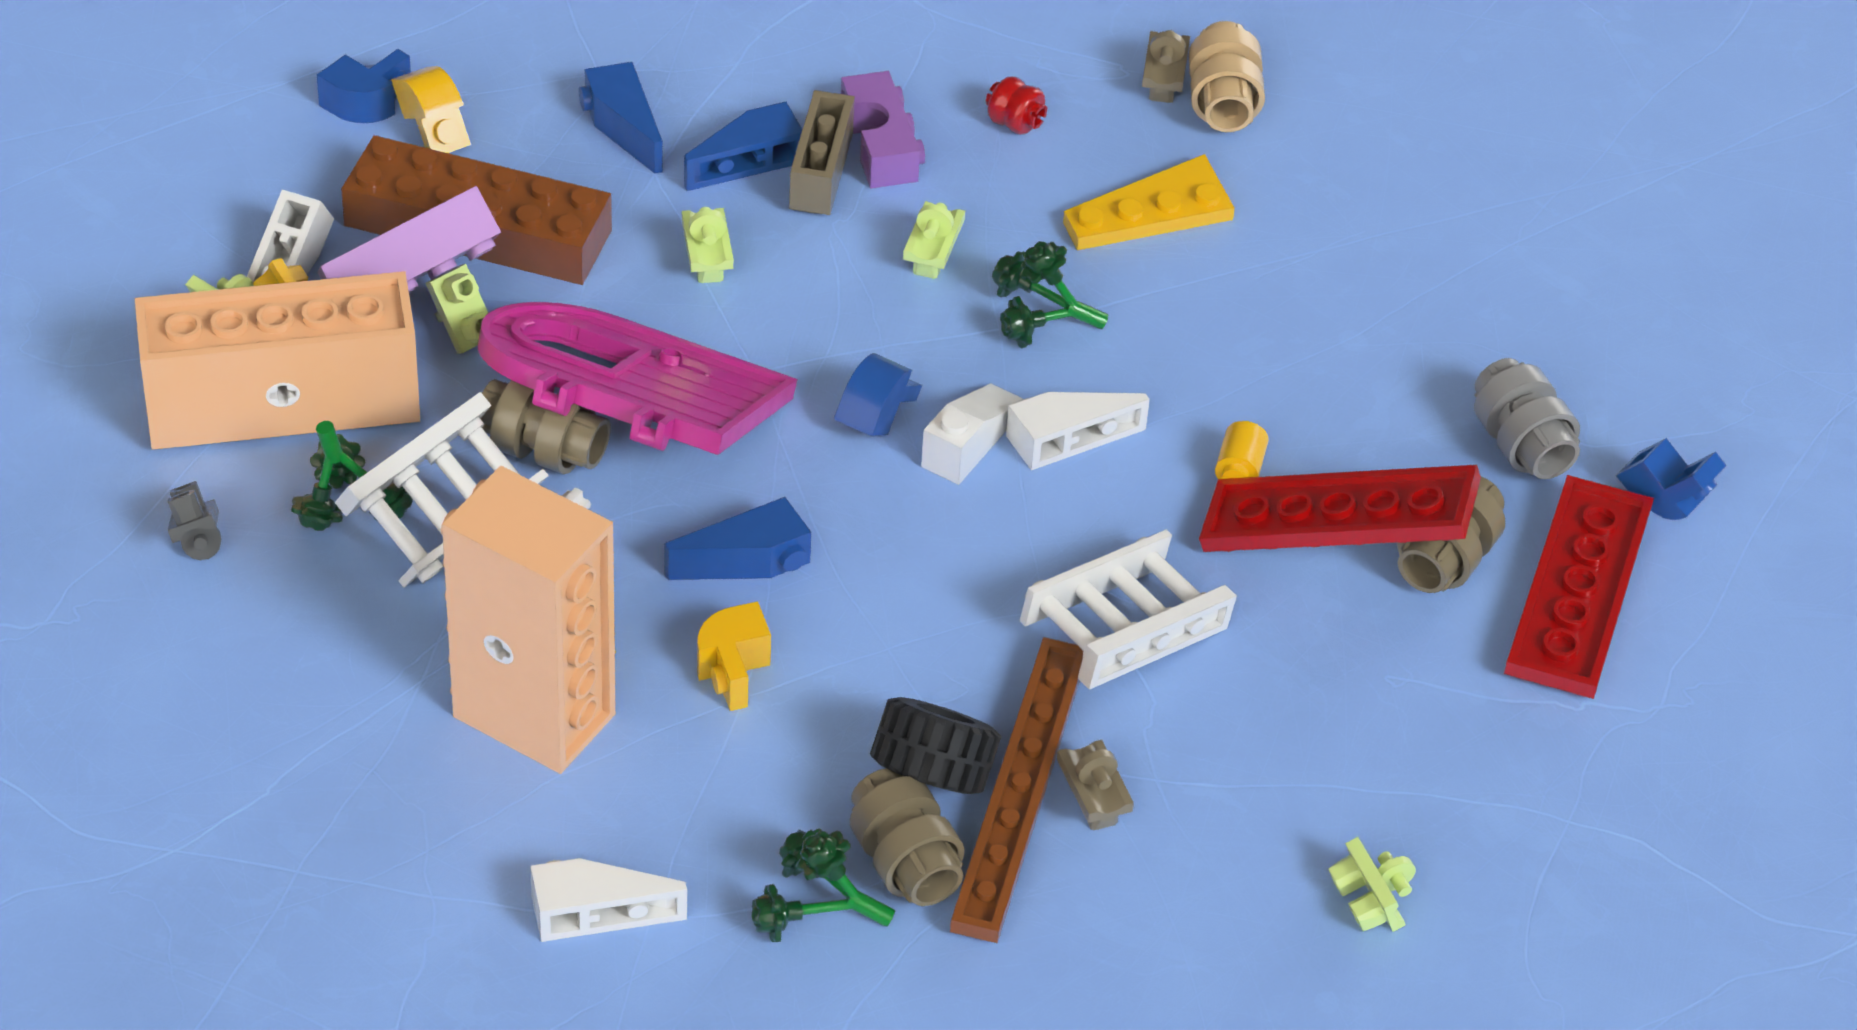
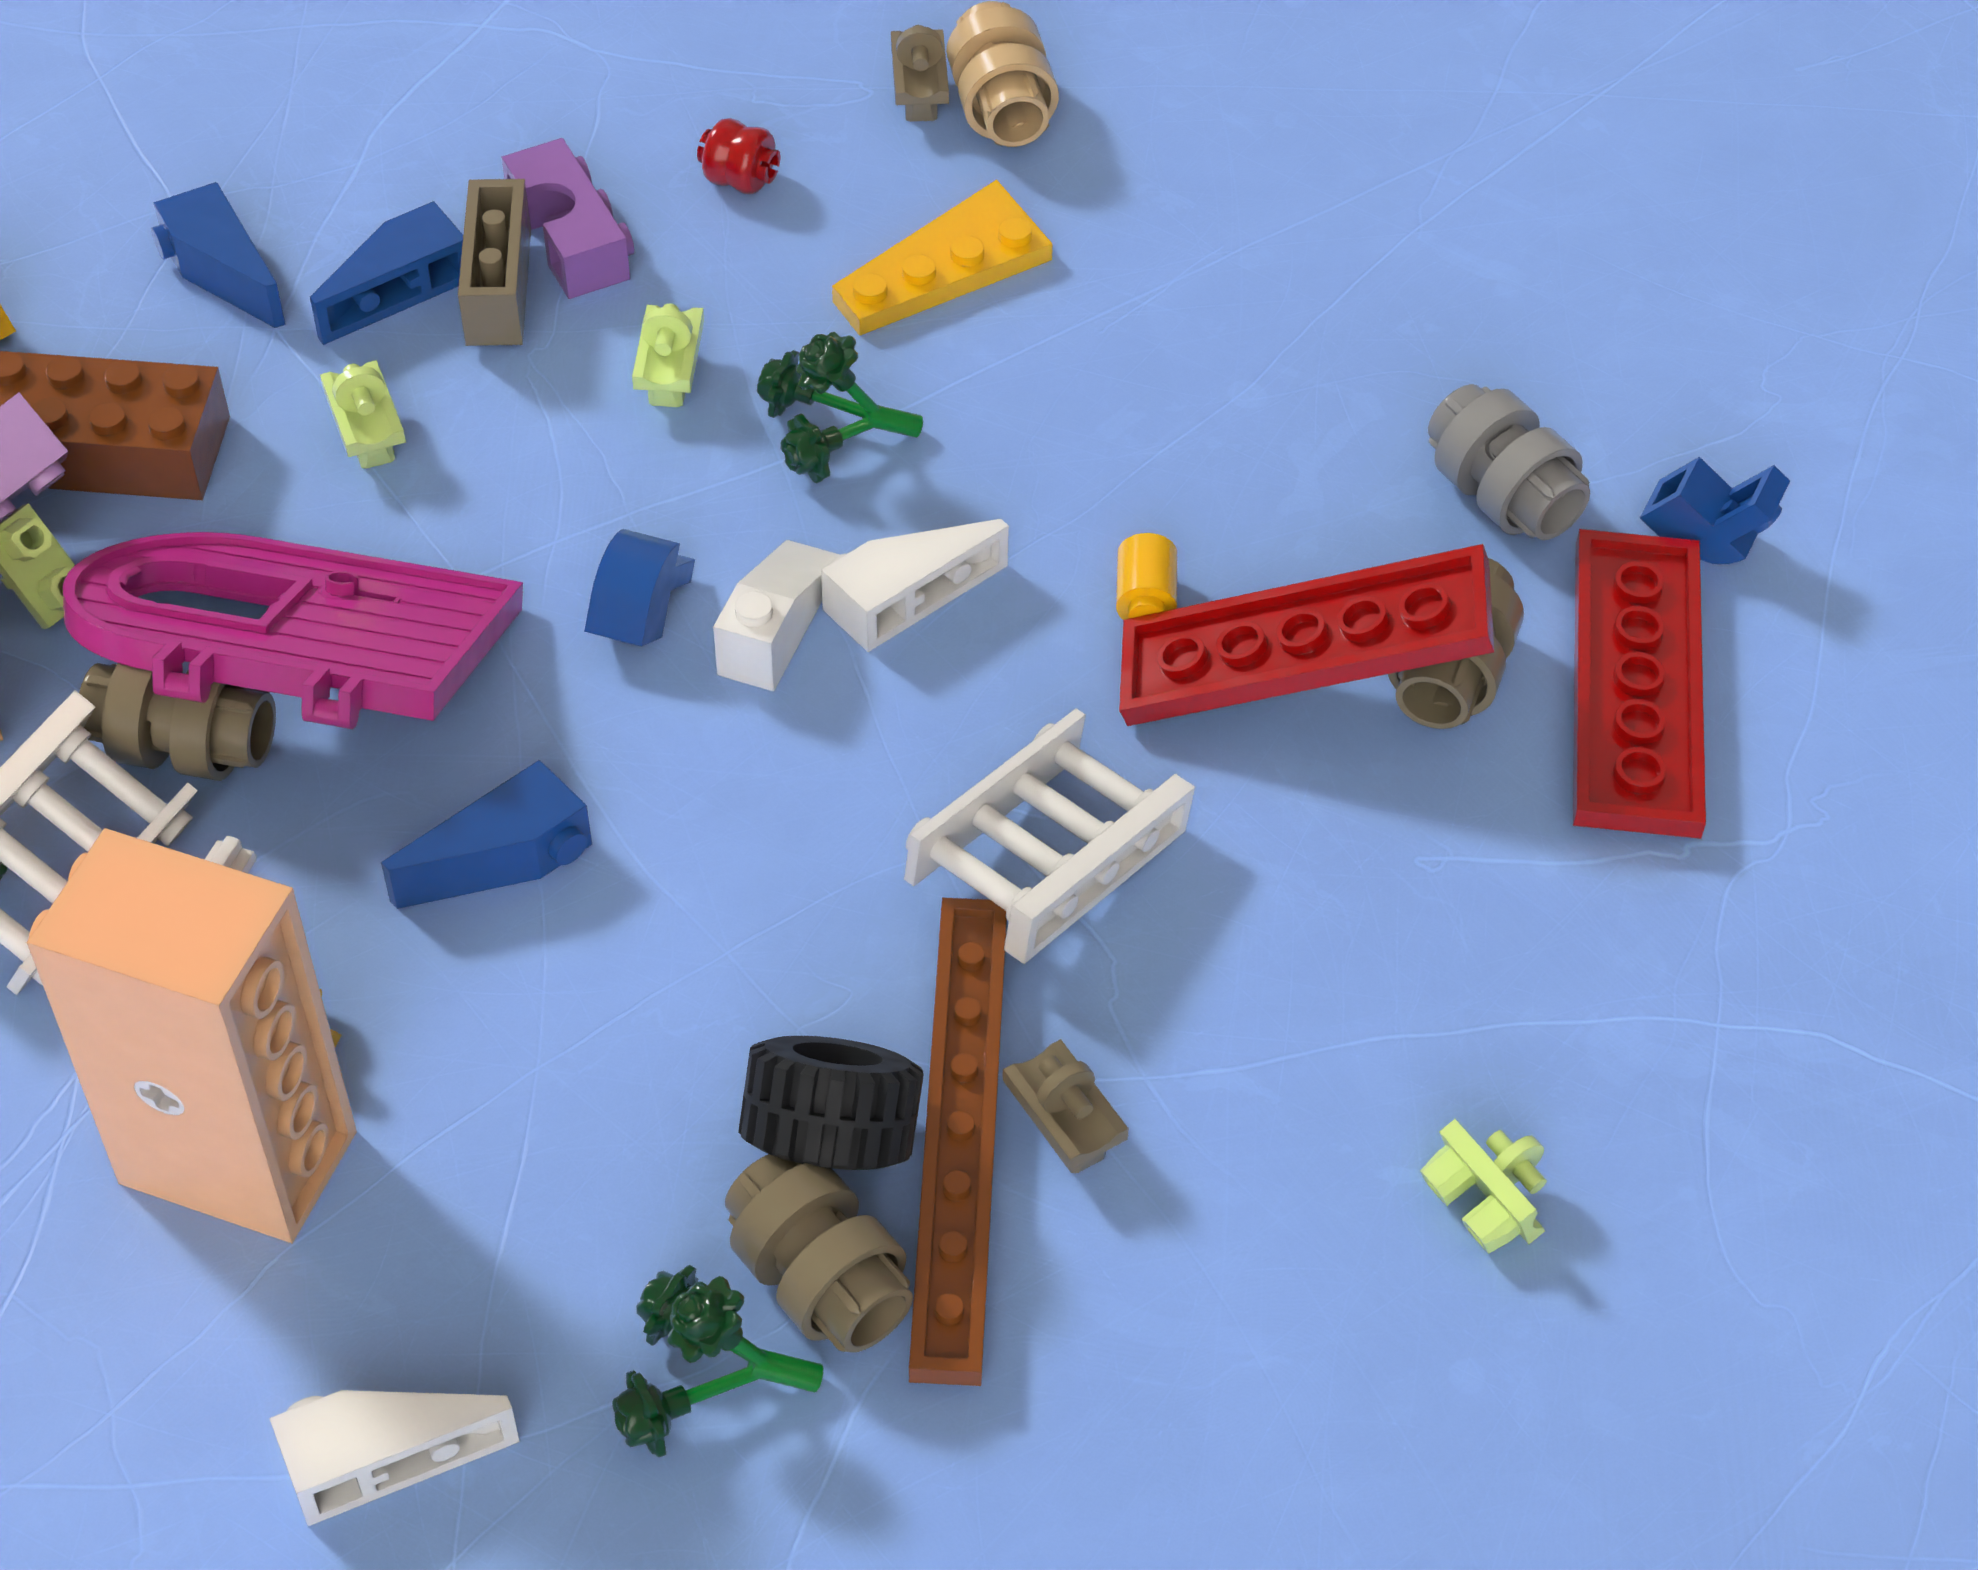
camera: 10 degrees left, 5 degrees up
(729, 646) = (502, 996): yellow brick -> none

